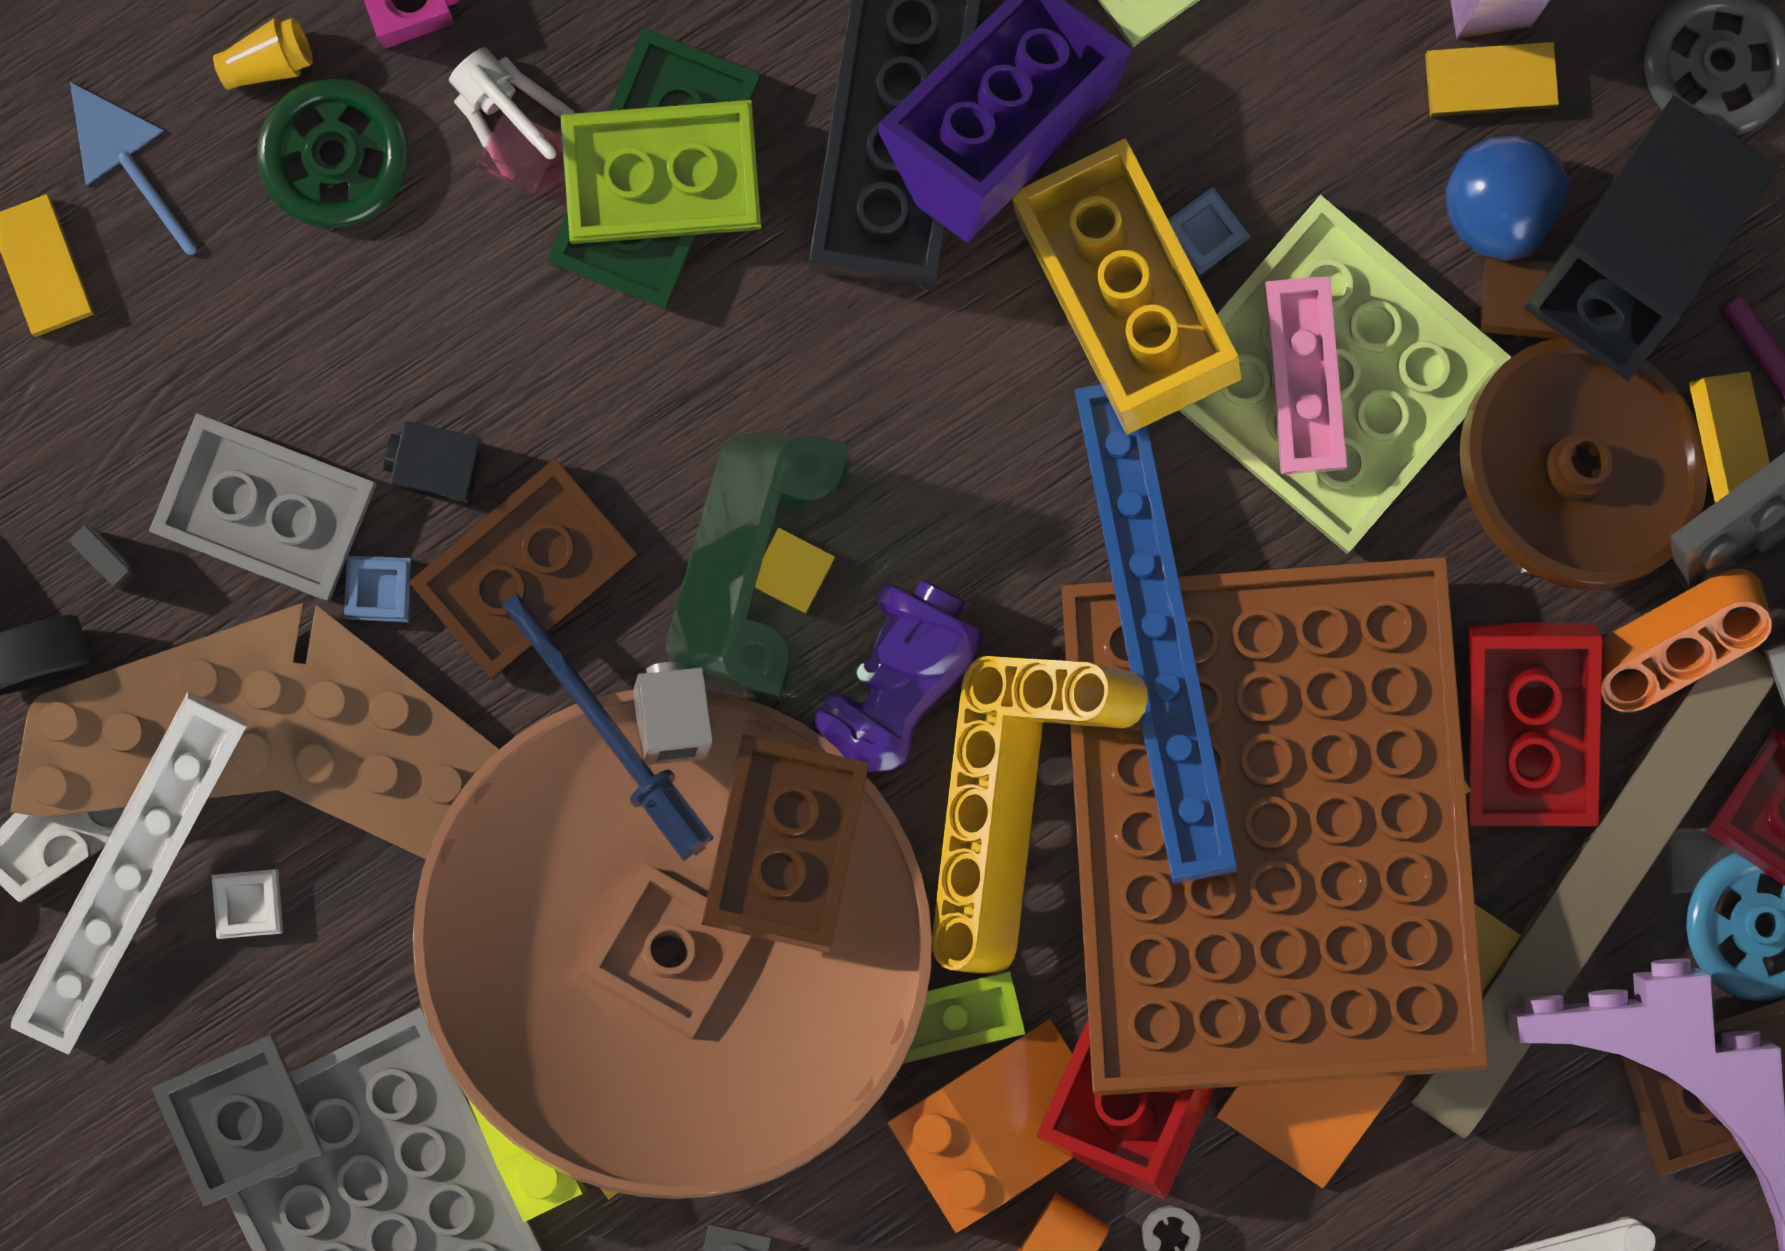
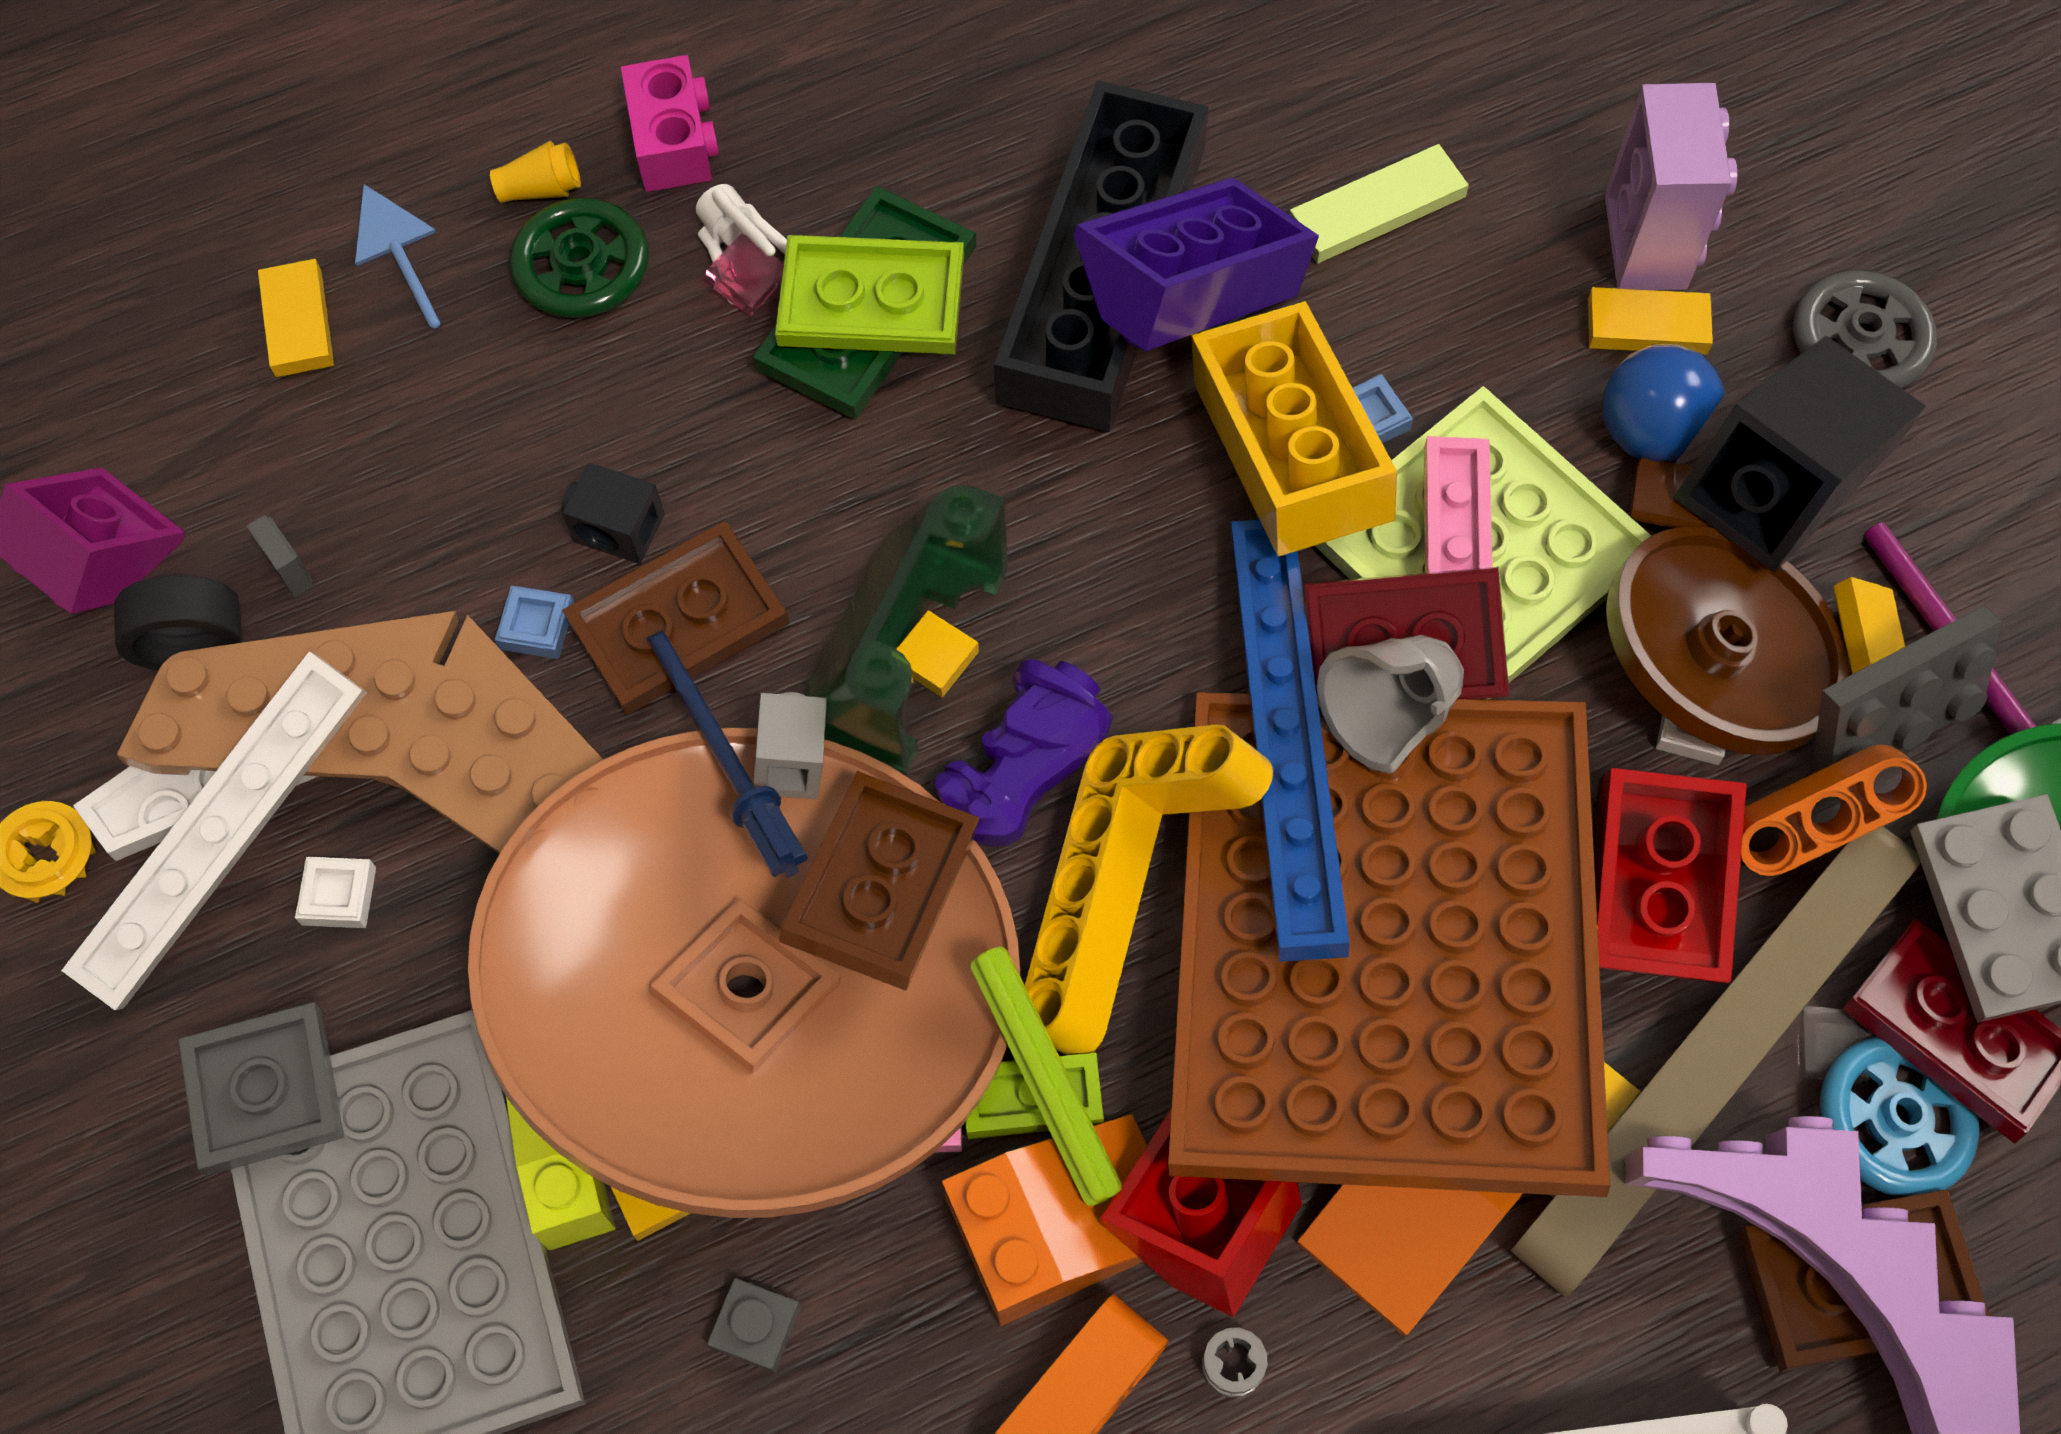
camera: 10 degrees right, 20 degrees down
(262, 507) = (442, 534): light grey plate -> none
(967, 1010) = (1046, 1076): none -> lime axle
(1256, 588) = (1388, 696): none -> light grey helmet
(1265, 509) = (1443, 605): none -> dark red tile

